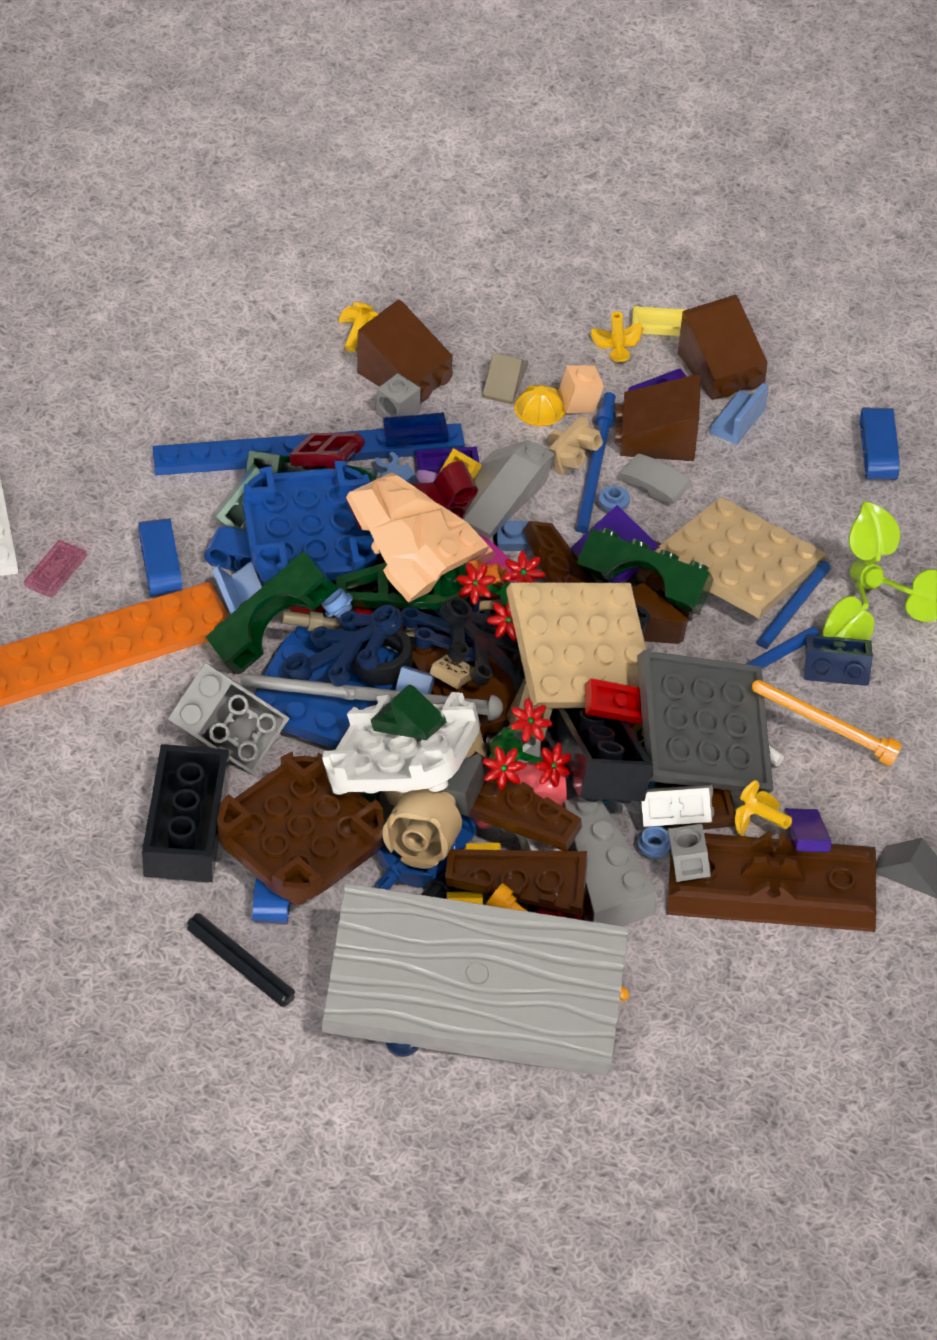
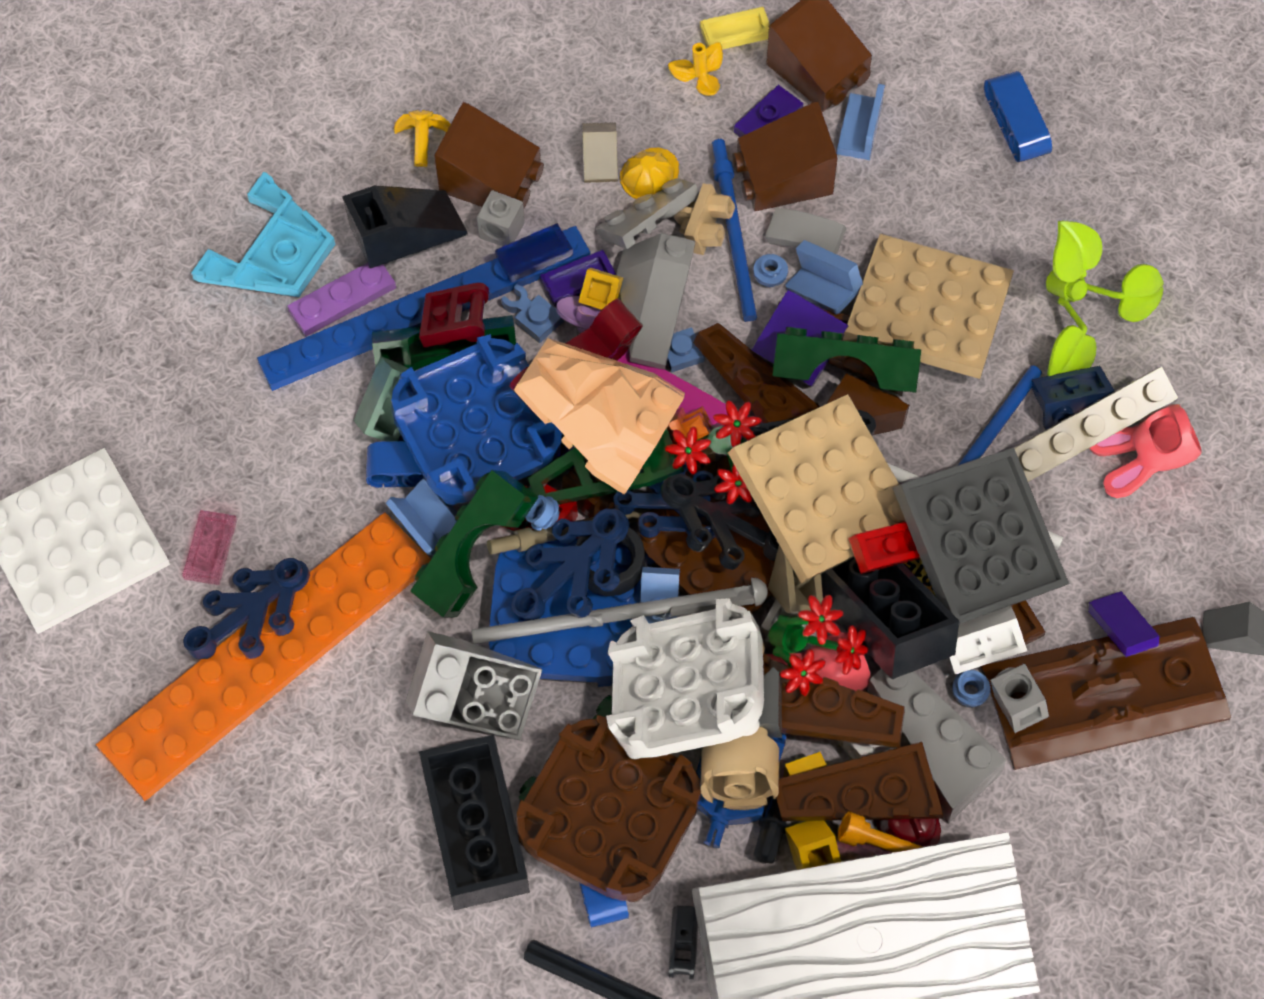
camera: 15 degrees left, 15 degrees up
(106, 601) = (284, 581): none -> dark blue plant
(160, 557) = (320, 499): blue beam -> none
(202, 382) = (282, 255): none -> medium azure wing
(242, 423) = (340, 297): none -> medium lavender plate
(312, 378) = (400, 221): none -> black slope
(324, 952) = (683, 937): none -> black bar
(409, 716) = (682, 645): dark green slope -> none
(451, 672) = (697, 563): tan tile -> none
(525, 425) = (624, 225): none -> light grey wing
(580, 388) = (687, 145): light nougat brick -> none
(660, 511) = (825, 278): none -> medium blue panel
(762, 804) = (1061, 610): yellow plant -> none
(793, 605) = (1002, 343): blue bar -> none
(849, 675) = (1095, 423): none -> plate
(883, 748) = (1164, 495): light orange piece -> none
(897, 706) = (1162, 444): none -> coral piece

